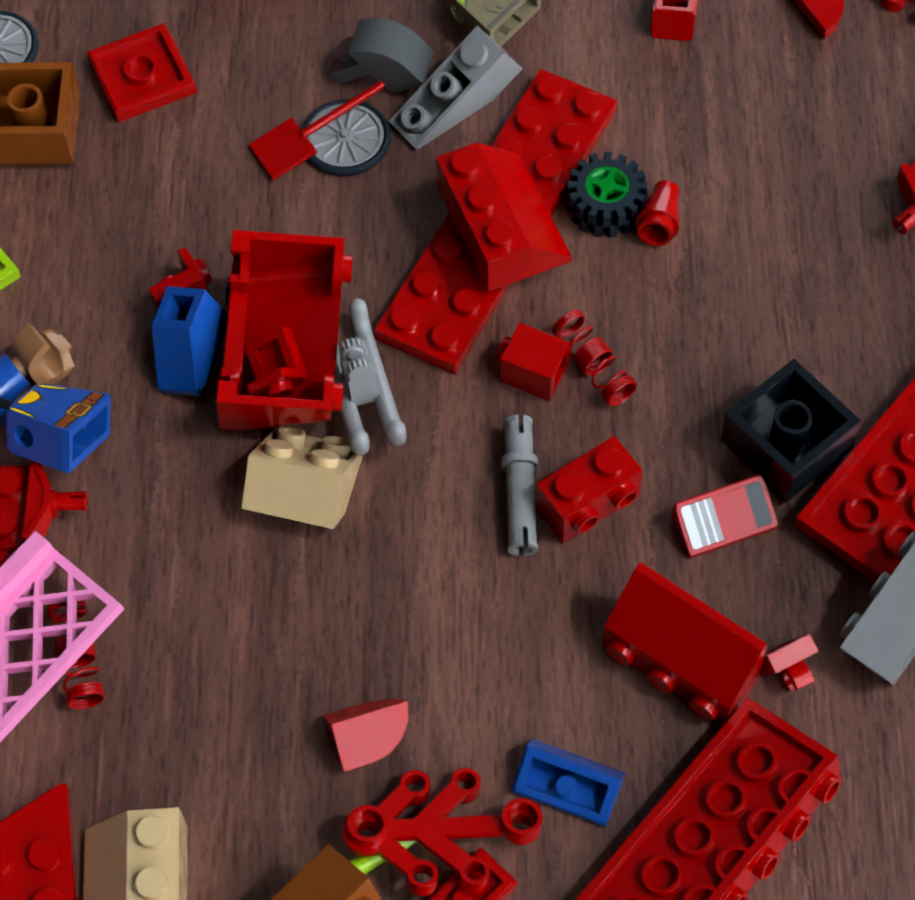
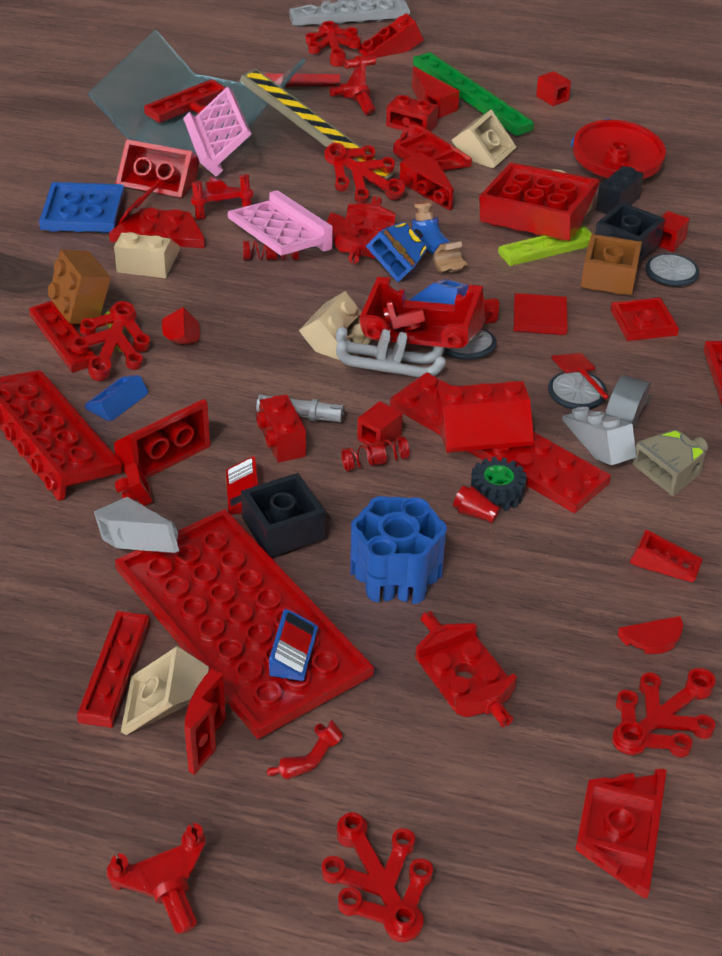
camera: 100 degrees right, 20 degrees down
(164, 208) = (540, 314): none -> red tile
(814, 266) = (398, 545): none -> blue piece

